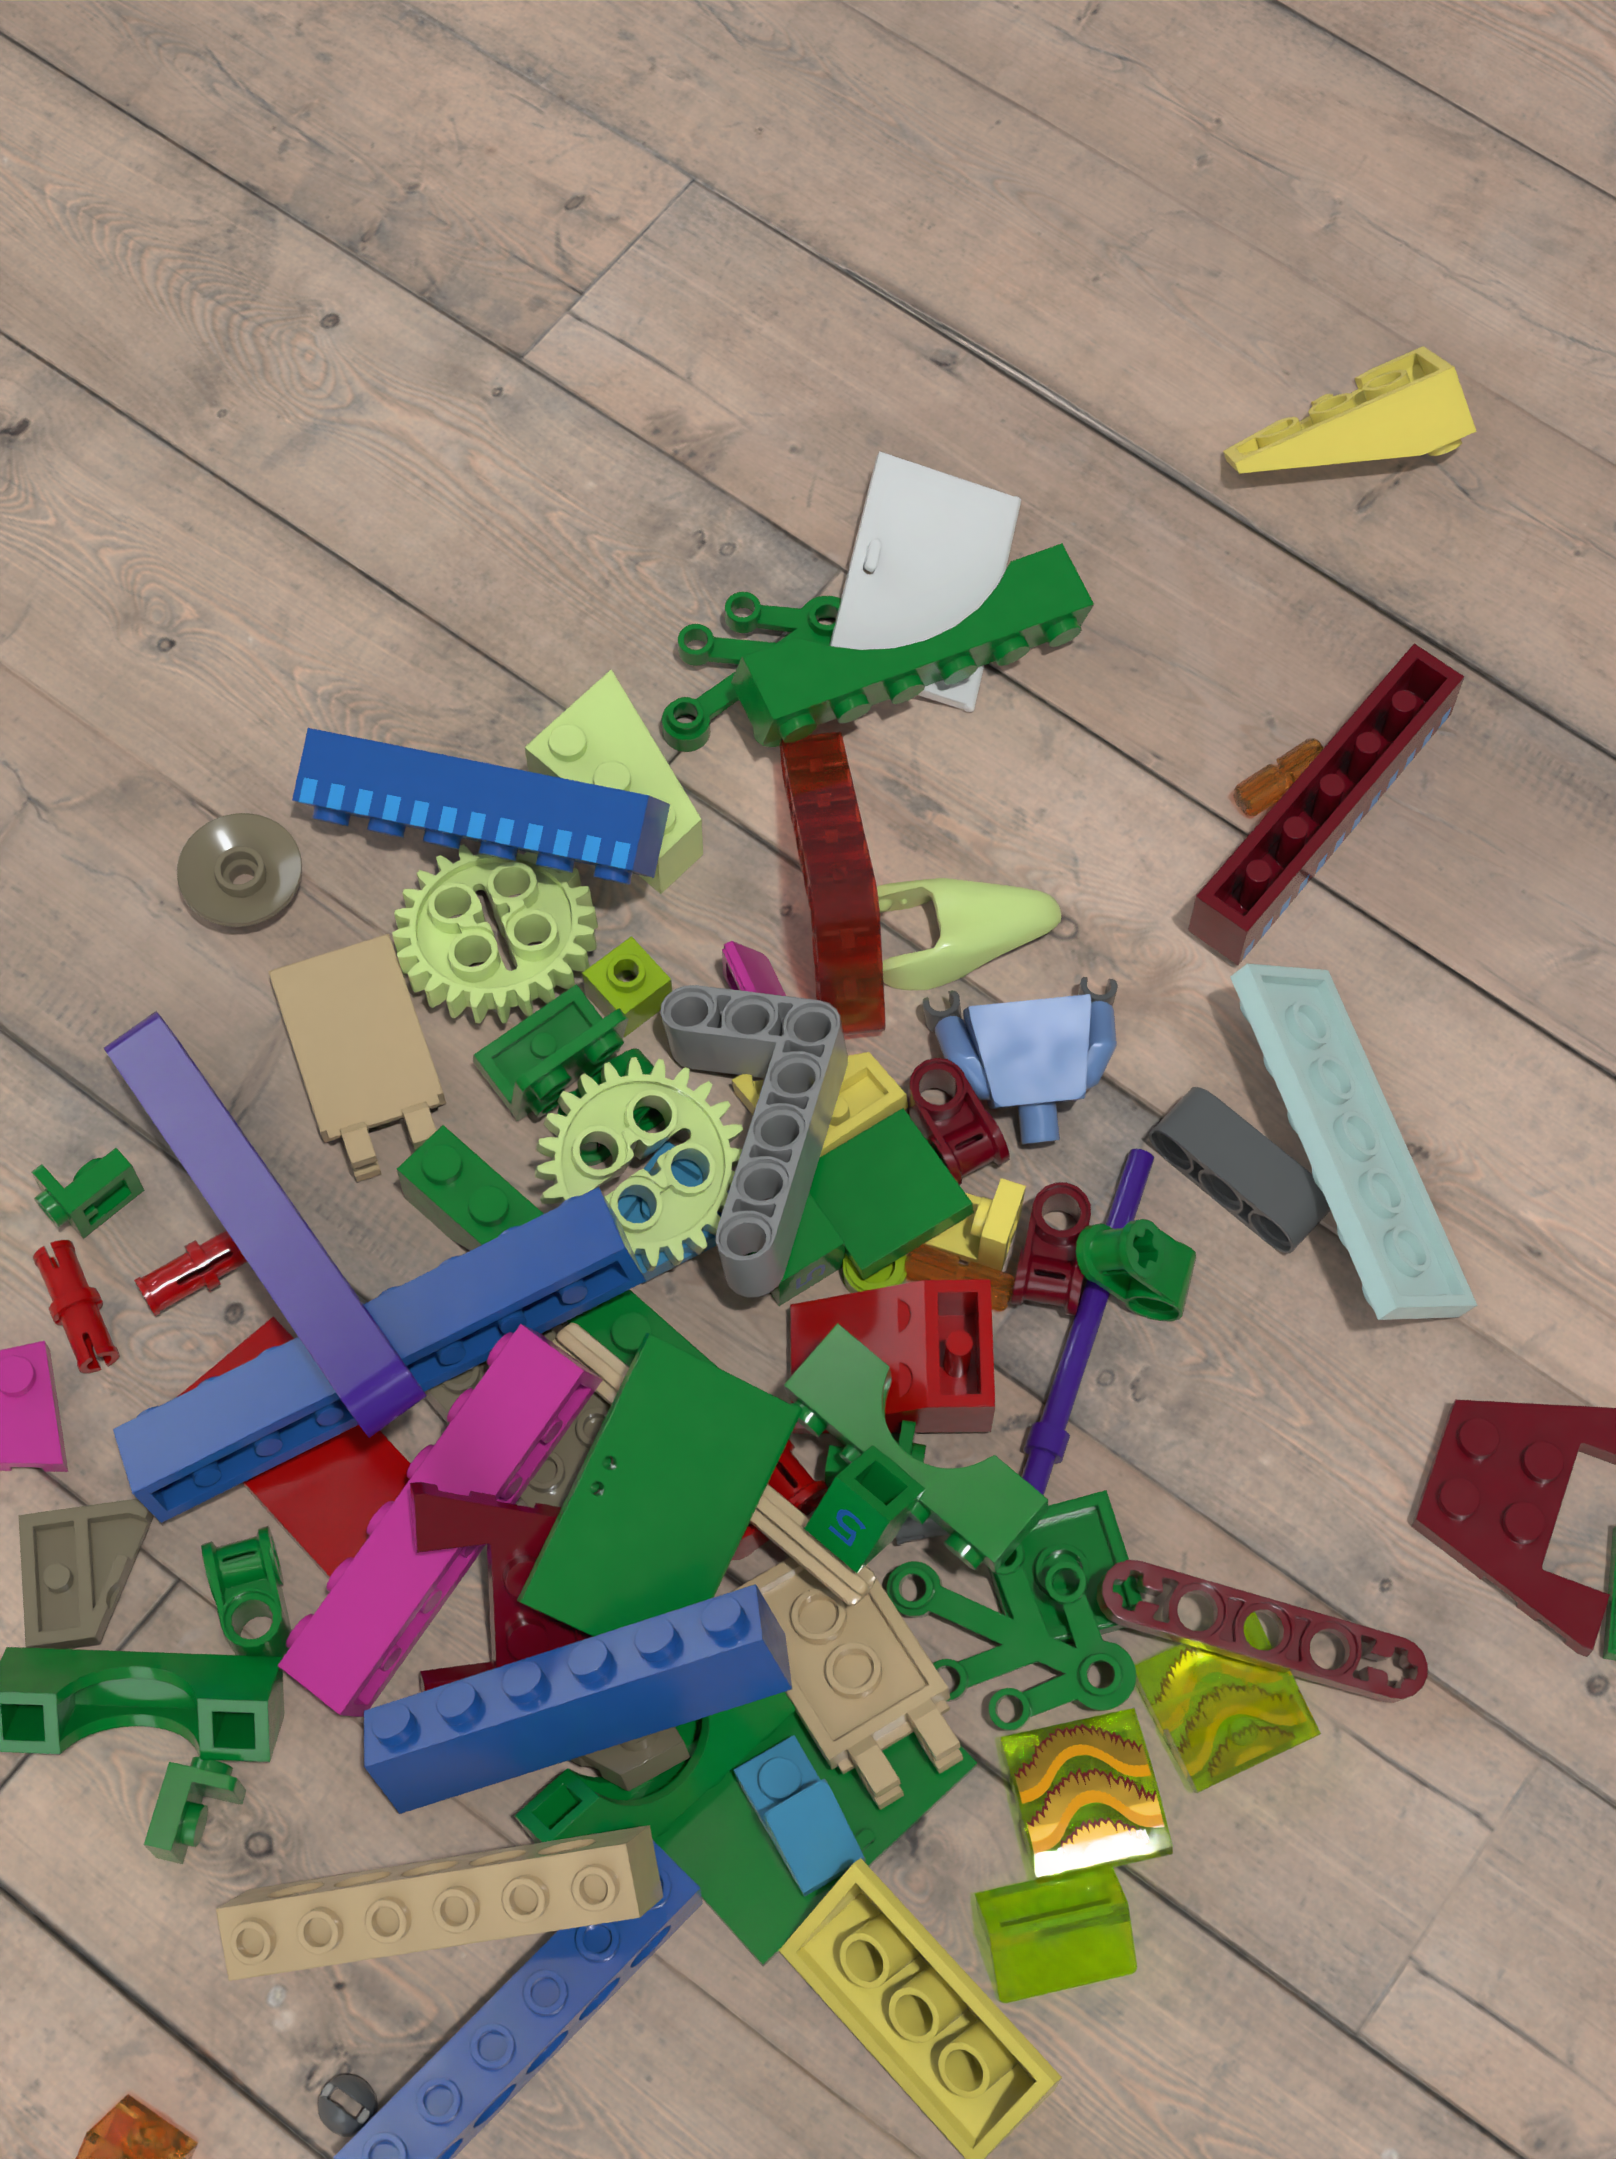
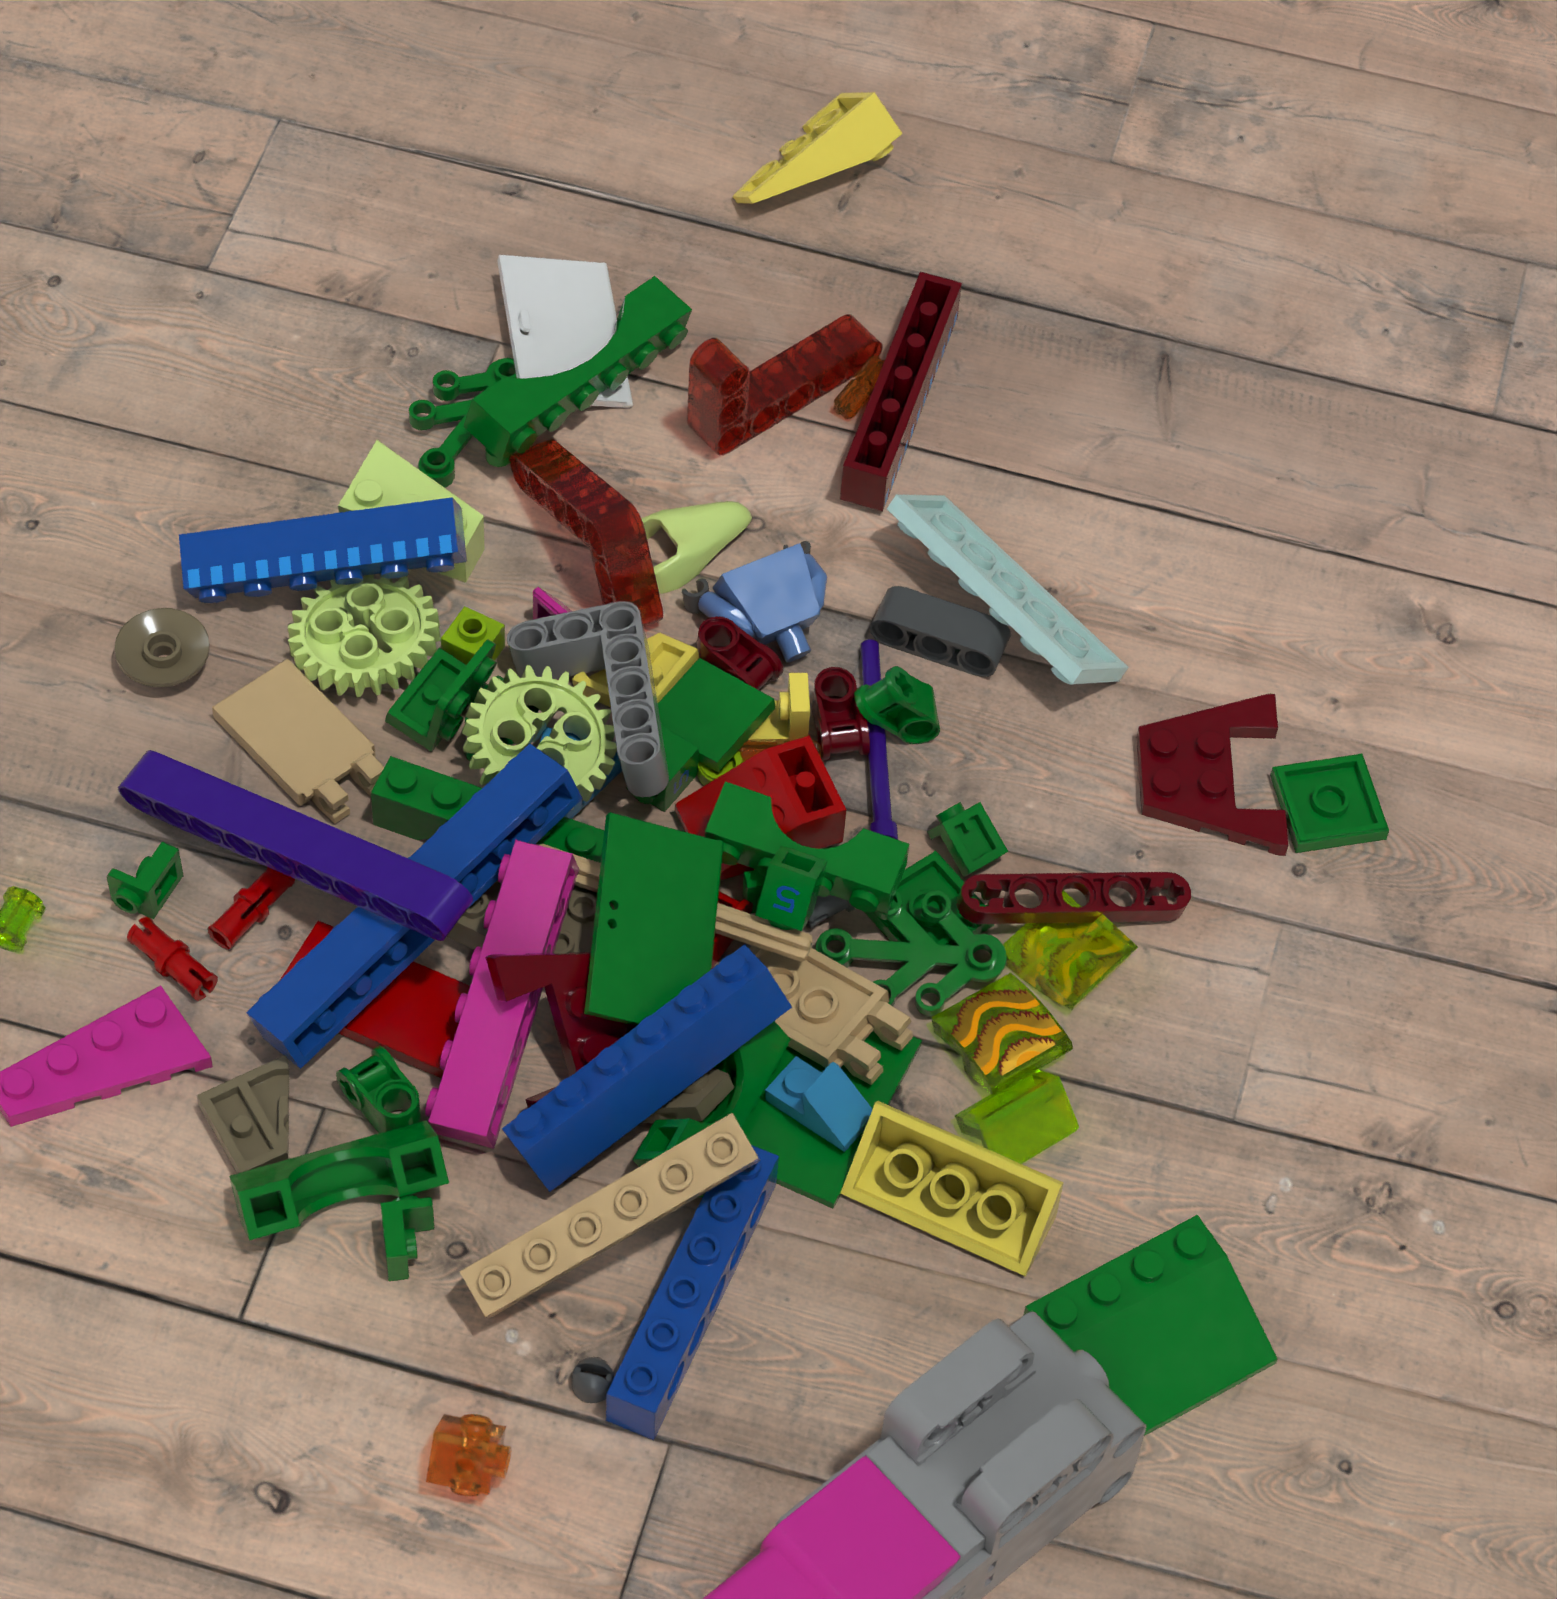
camera: 25 degrees left, 10 degrees down
(1097, 762) = (736, 404): none -> clear red beam
(1156, 1487) = (969, 837): none -> green bracket

